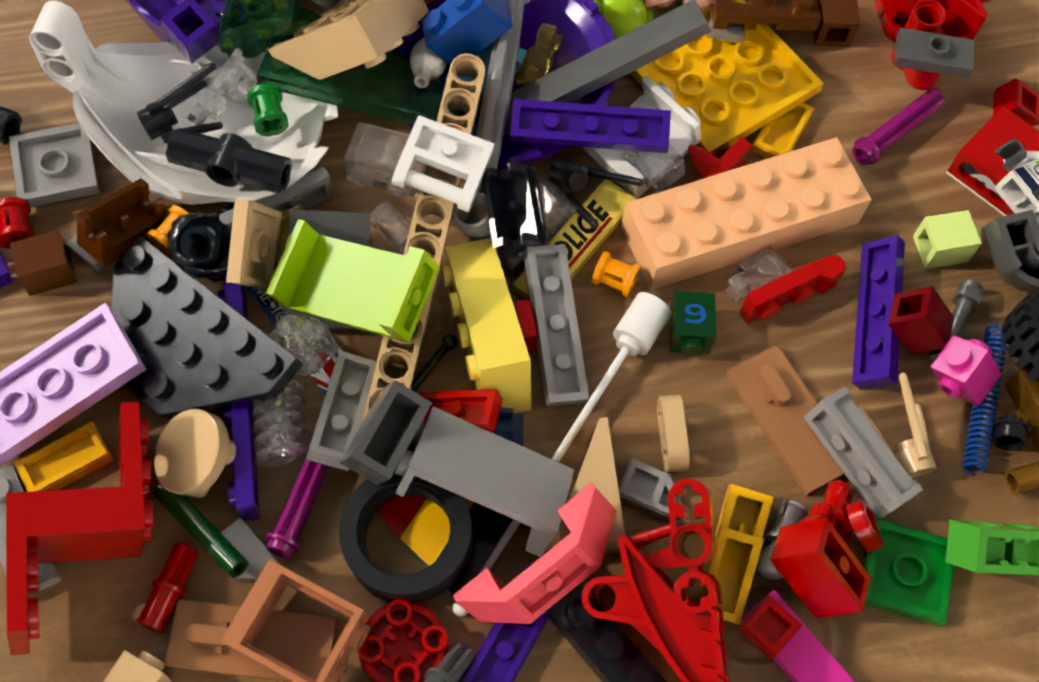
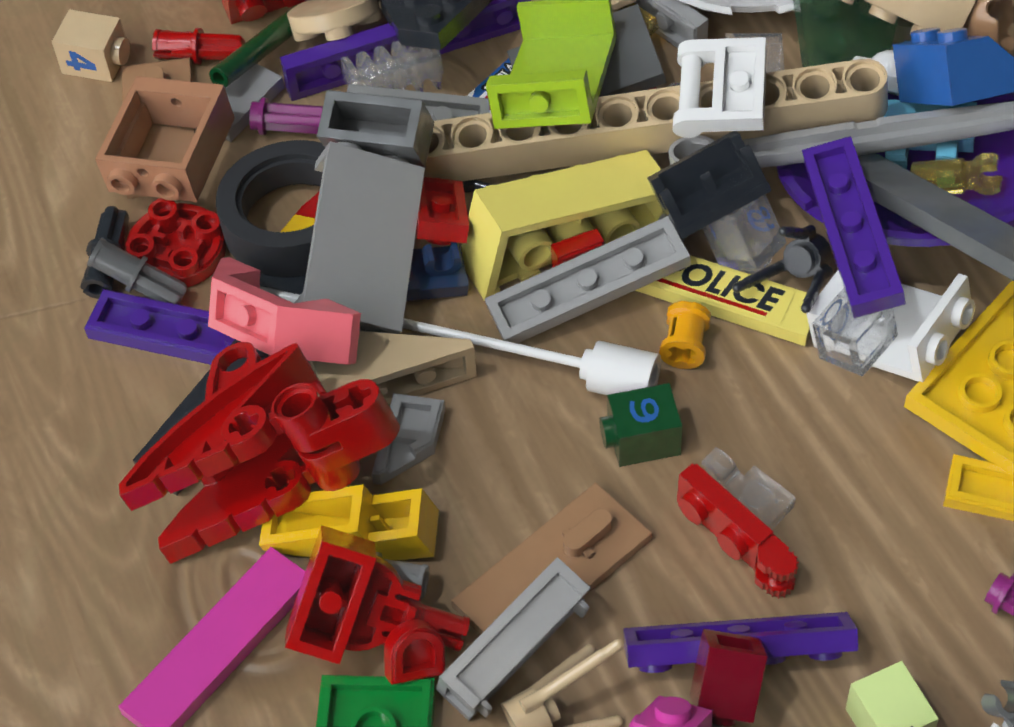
camera: 85 degrees right, 10 degrees down
(306, 340) = (476, 56): clear brick -> none
(673, 433) = (485, 433): tan beam -> none
(709, 165) = (898, 419): red plate -> none
(743, 212) = (835, 454): light nougat brick -> none
(769, 627) = (258, 571): red tile -> none

